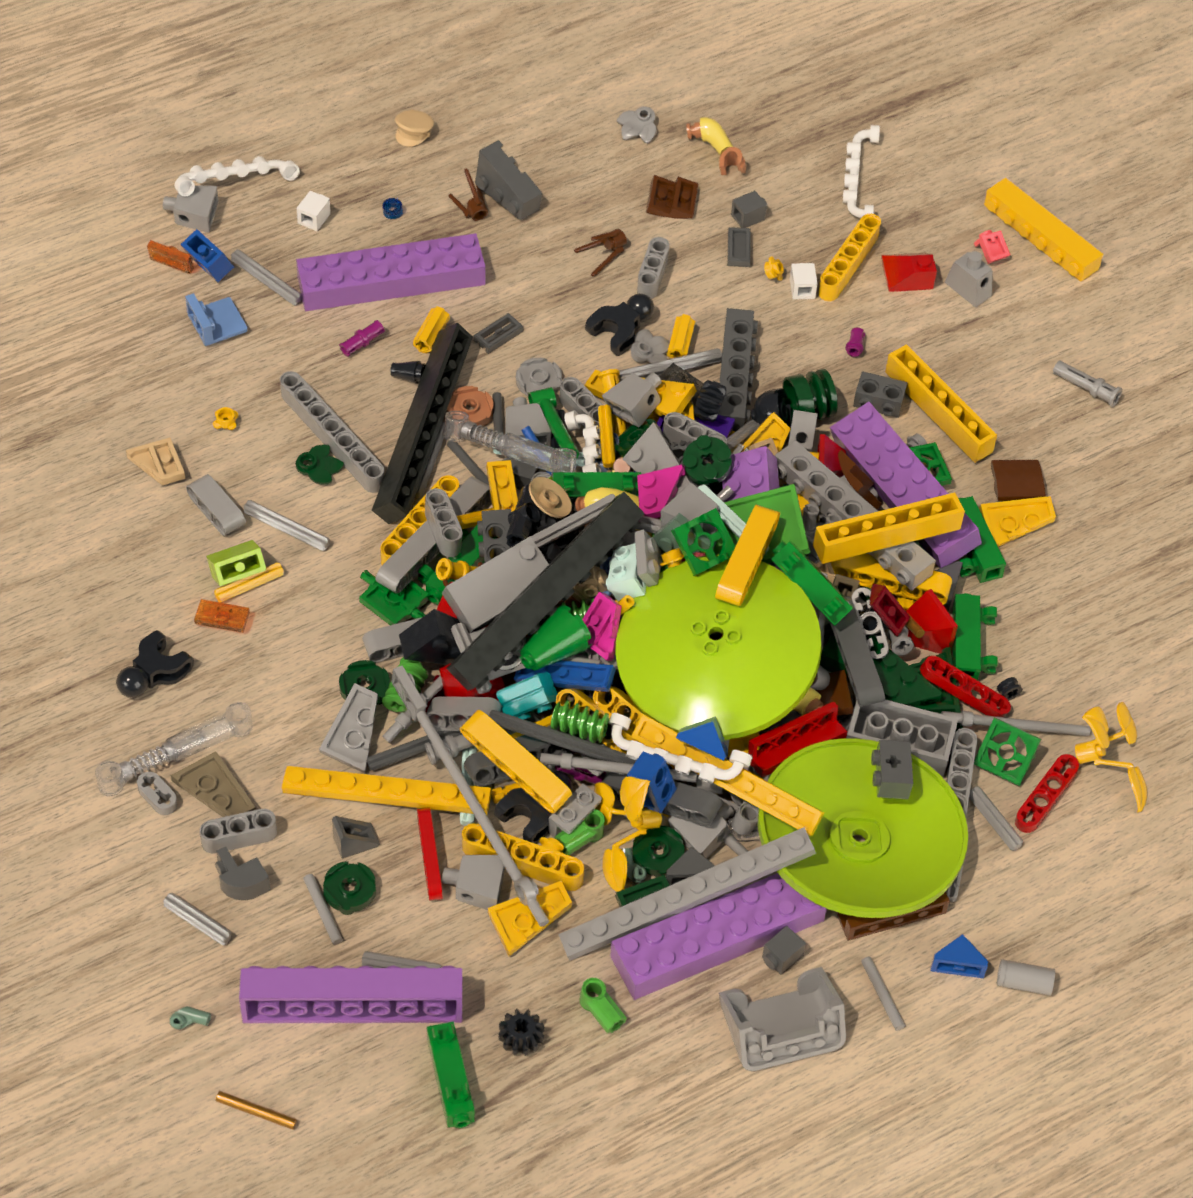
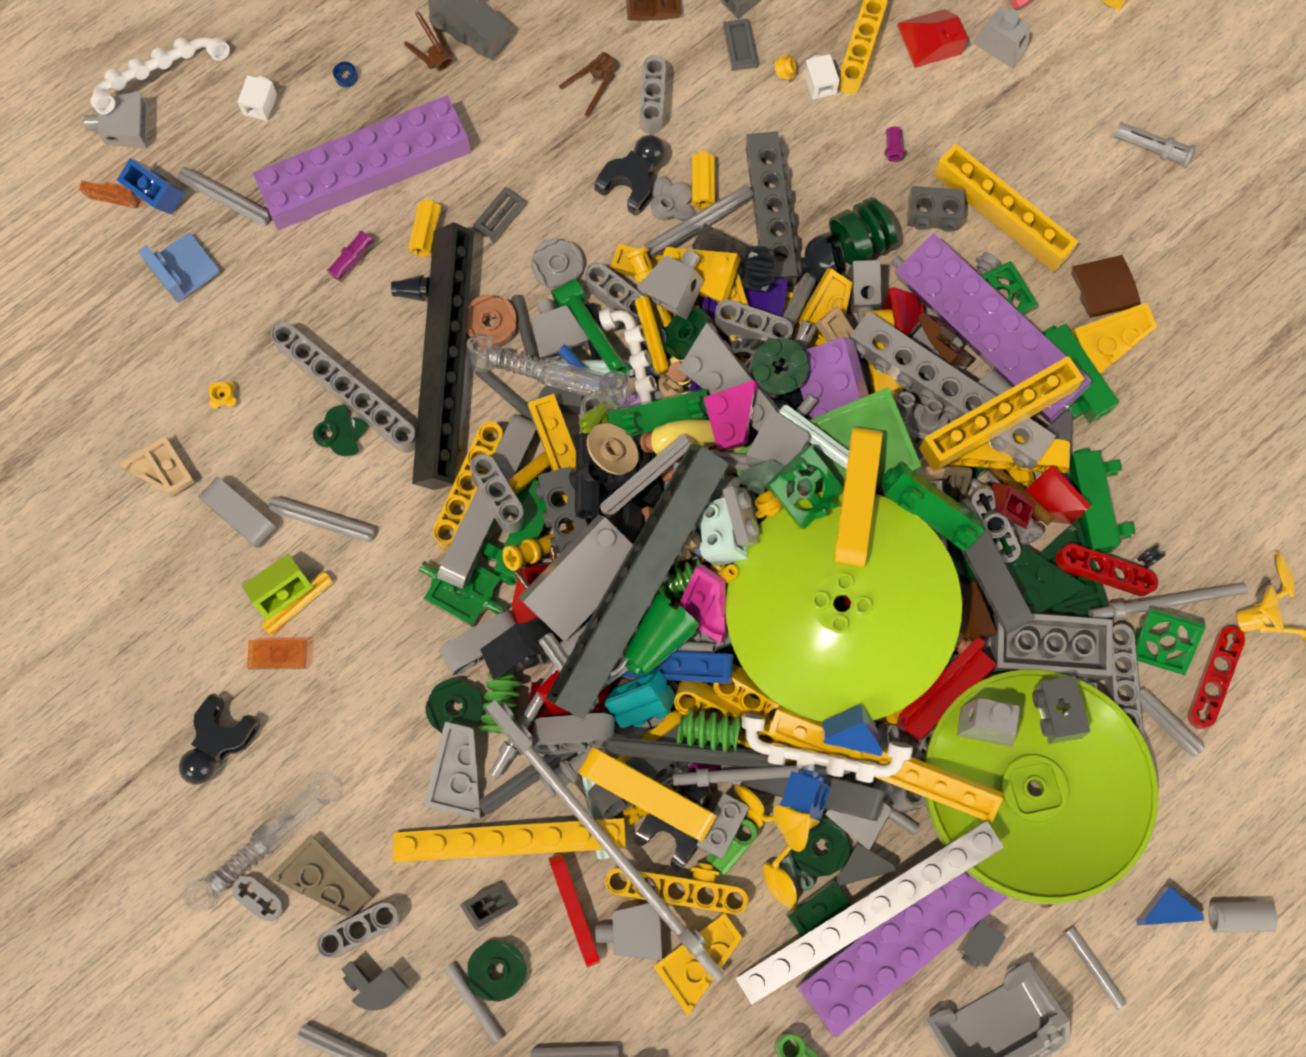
camera: 10 degrees left, 20 degrees up
(828, 761) = (991, 723): none -> light grey torso

